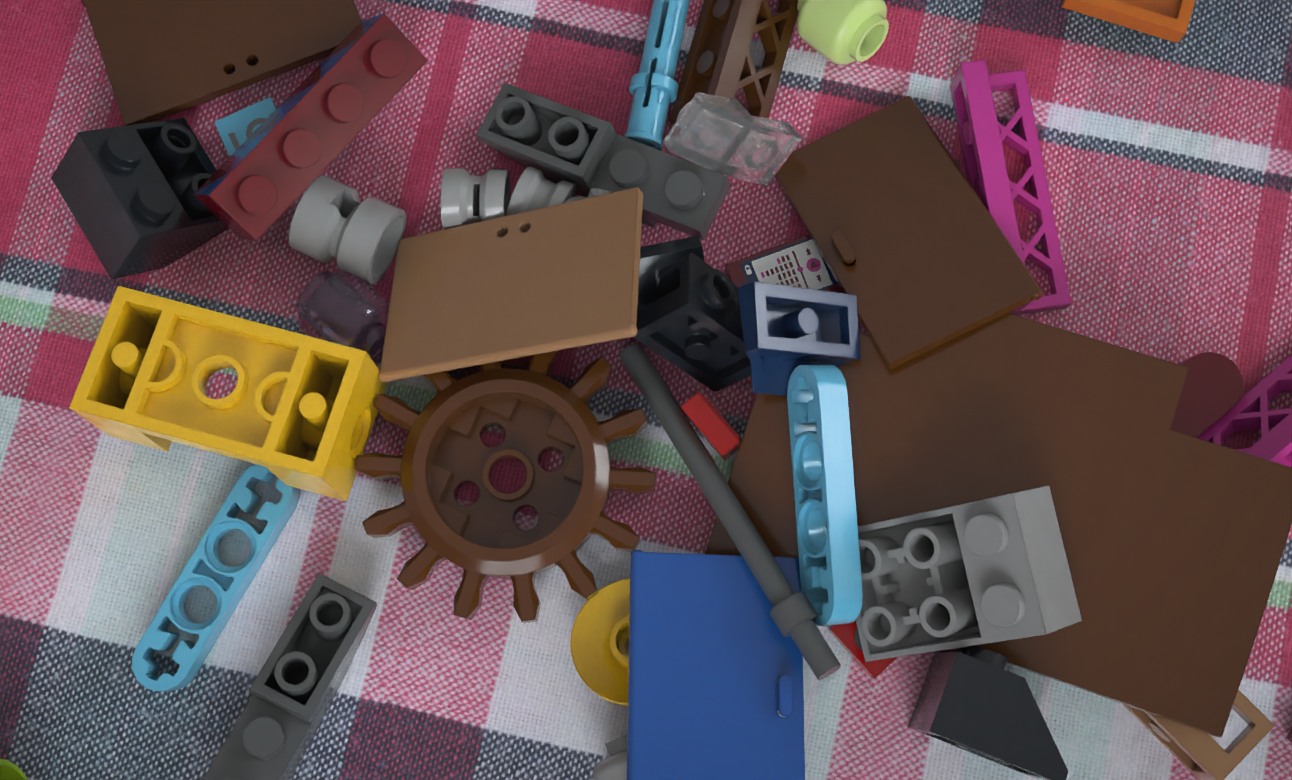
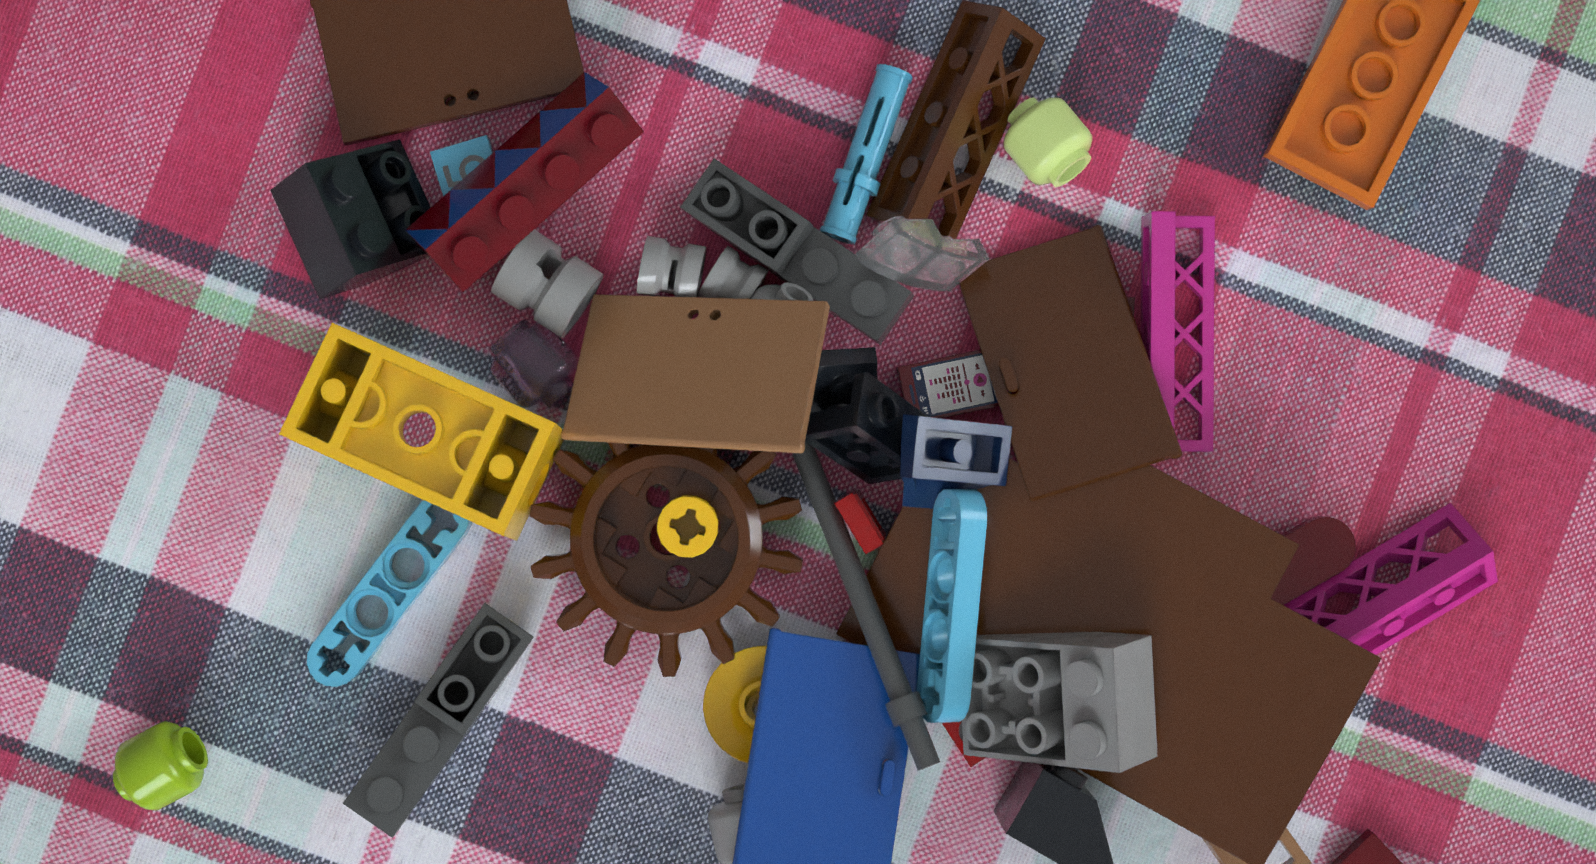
camera: 10 degrees right, 10 degrees up
(525, 460) = (689, 516): none -> yellow wheel

